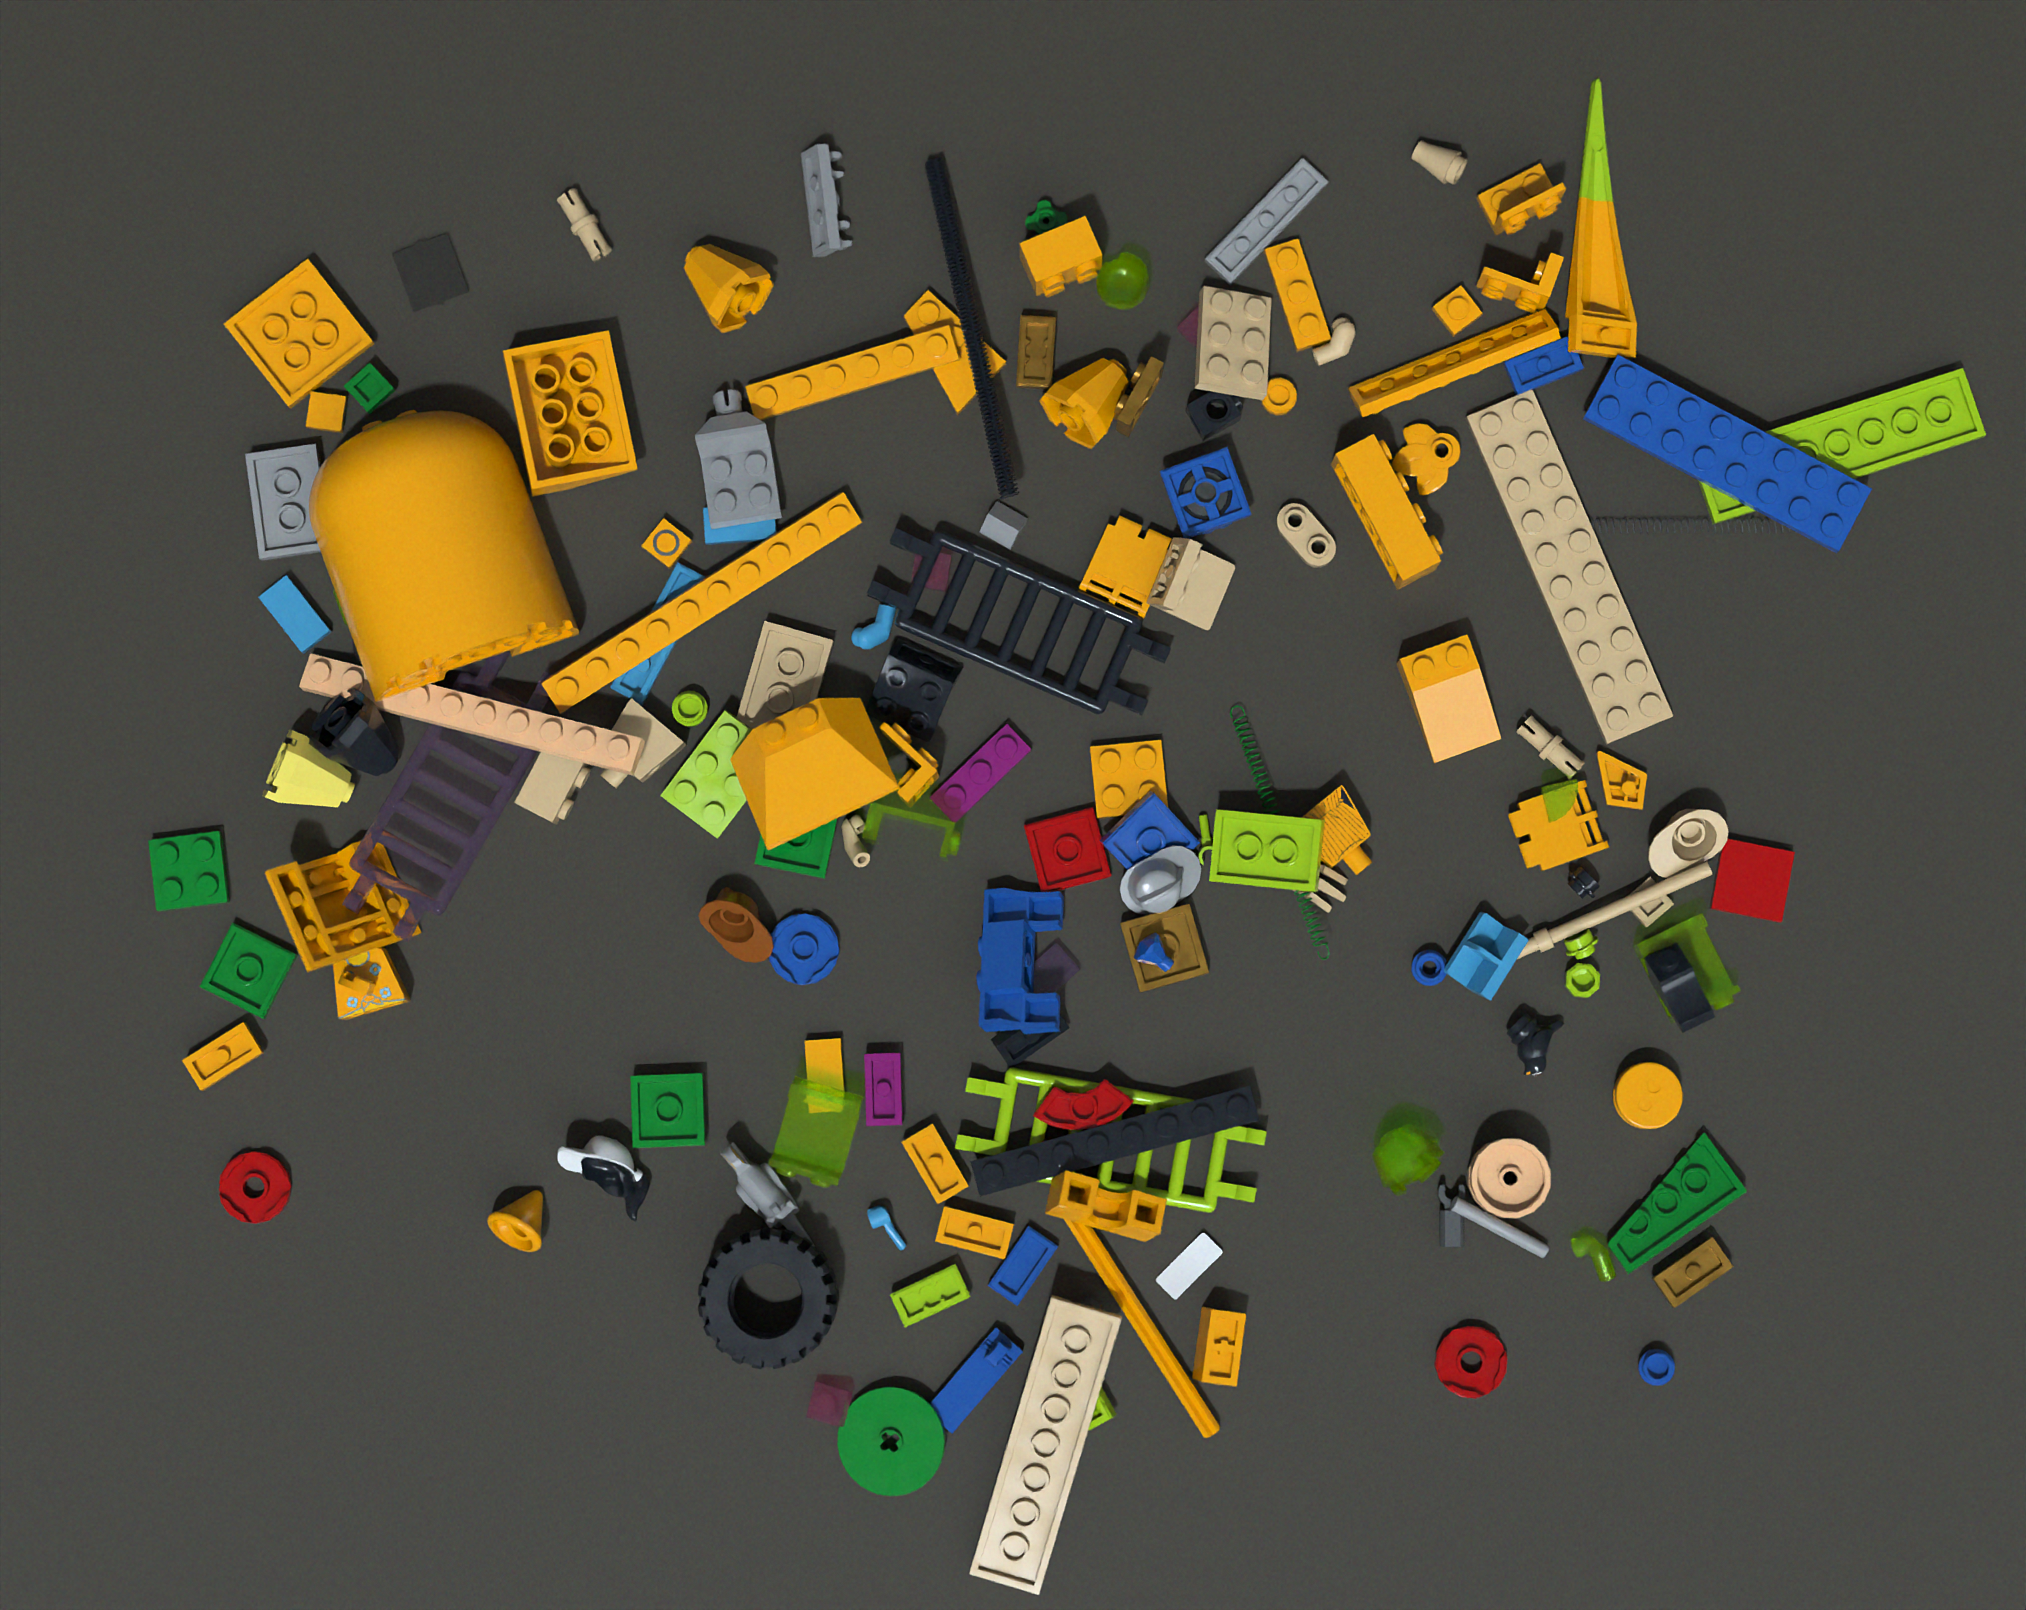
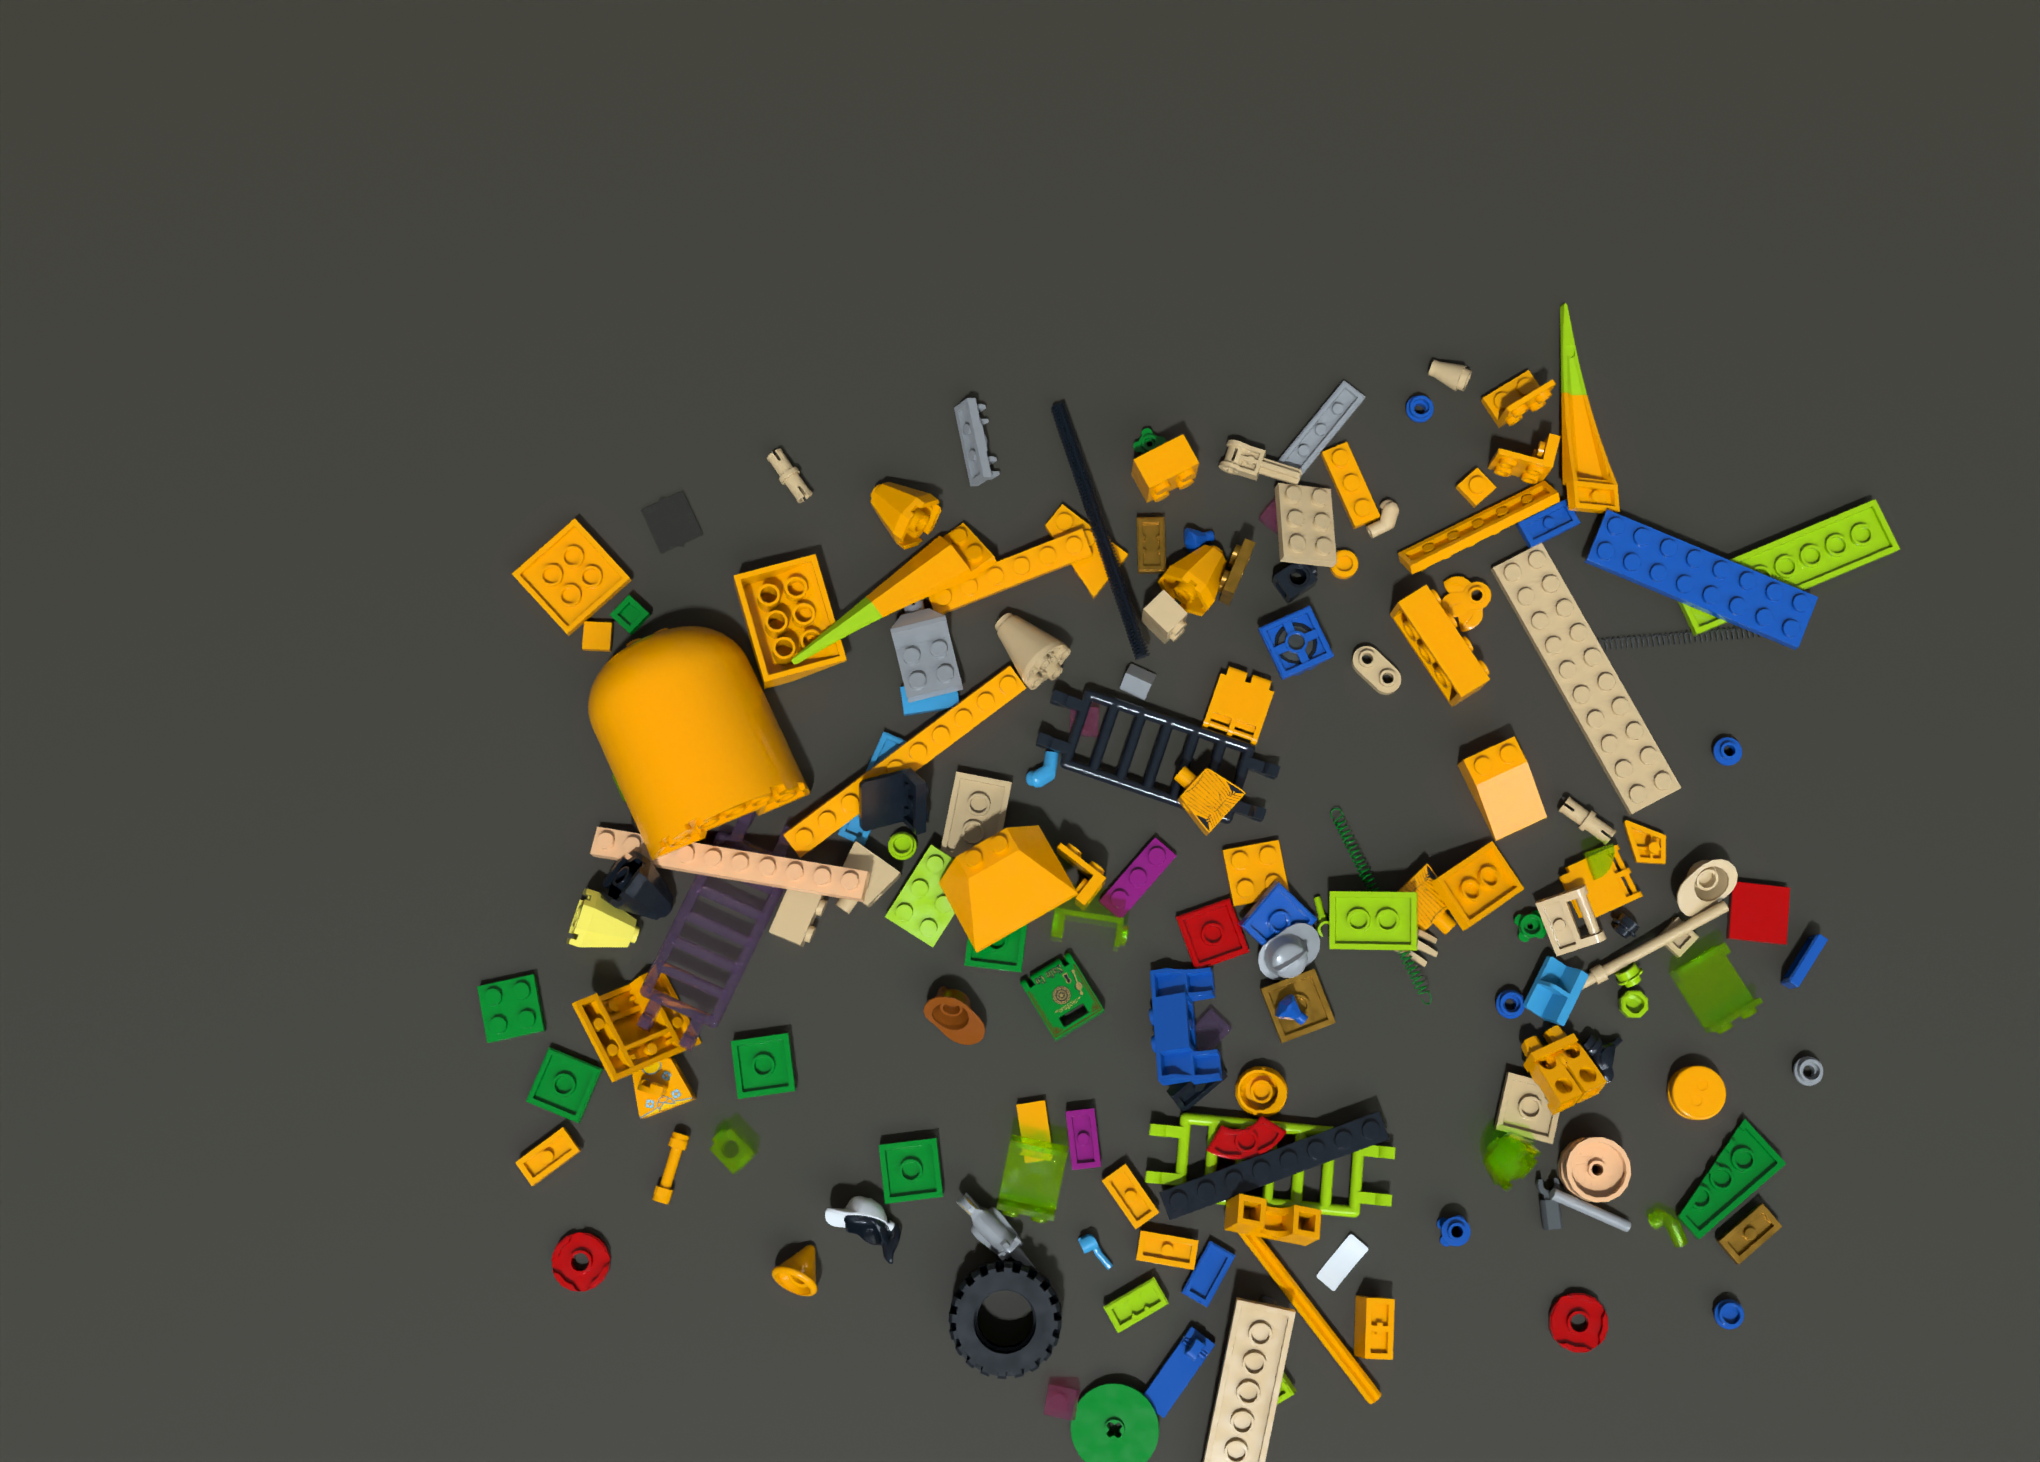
camera: 10 degrees left, 5 degrees down
(280, 500) = (565, 708): light grey plate -> none
(294, 614) = (583, 797): dark azure tile -> none
(361, 1112) = (663, 1192): none -> light orange bar
(463, 1076) = (745, 1154): none -> clear neon green brick
(496, 967) = (763, 1066): none -> green plate
(666, 543) = (873, 717): light orange tile -> none
(681, 651) = (892, 800): none -> black bracket
(759, 361) = (935, 568): none -> light orange plate
(804, 949) = (1009, 1030): blue tile -> none
(852, 843) = (1041, 943): tan arm -> none
(870, 906) = (1060, 991): none -> green container
(872, 475) = (1031, 650): none -> tan cone
(913, 689) = (1078, 816): black bracket -> none
(1043, 448) = (1165, 617): none -> tan brick
(1074, 679) = (1207, 797): none -> light orange torso
(1094, 349) = (1195, 539): none -> blue rock
(1109, 1049) = (1261, 1091): none -> light orange piece
(1123, 282) = (1214, 485): clear neon green hair -> none
(1173, 255) = (1251, 462): none -> tan connector
(1191, 583) = (1290, 714): tan bracket -> none
(1320, 1229) = (1446, 1225): none -> blue brick
(1401, 193) = (1425, 403): none -> blue plate
(1401, 817) = (1477, 885): none -> light orange plate
(1439, 1097) = (1525, 1110): none -> tan plate
(1469, 864) = (1526, 933): none -> green plate
(1482, 1053) = (1562, 1069): none -> light orange hips
(1503, 875) = (1561, 923): none -> tan plate
(1678, 987) = (1713, 1003): black arch -> none
(1727, 680) = (1721, 757): none -> blue plate
(1800, 944) = (1804, 961): none -> blue tile
(1800, 1075) = (1816, 1071): none -> light grey plate

